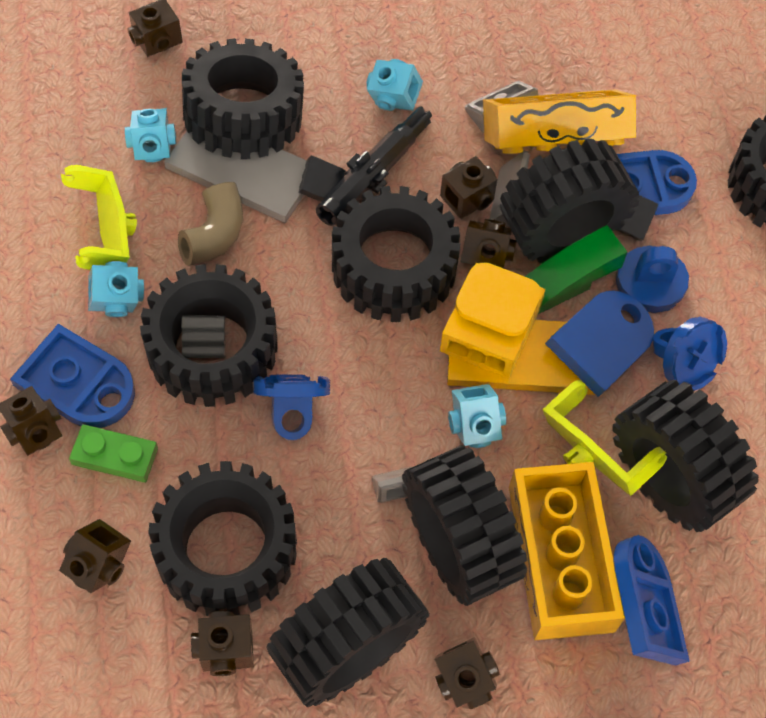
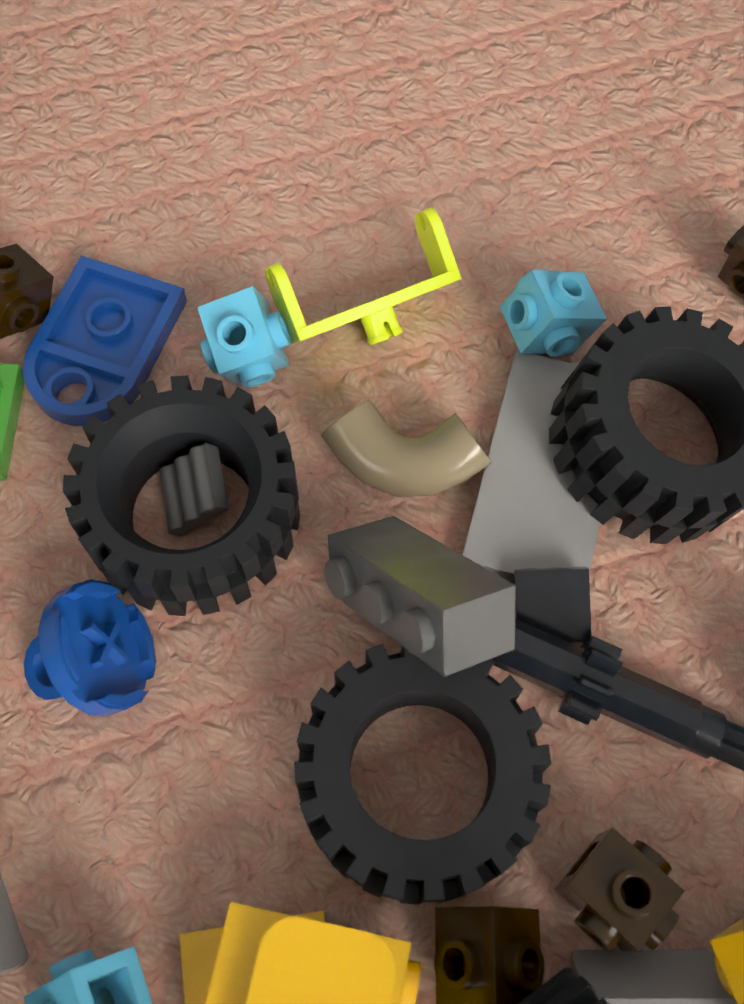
camera: 80 degrees right, 5 degrees up
(307, 222) = (422, 594): none -> dark grey brick

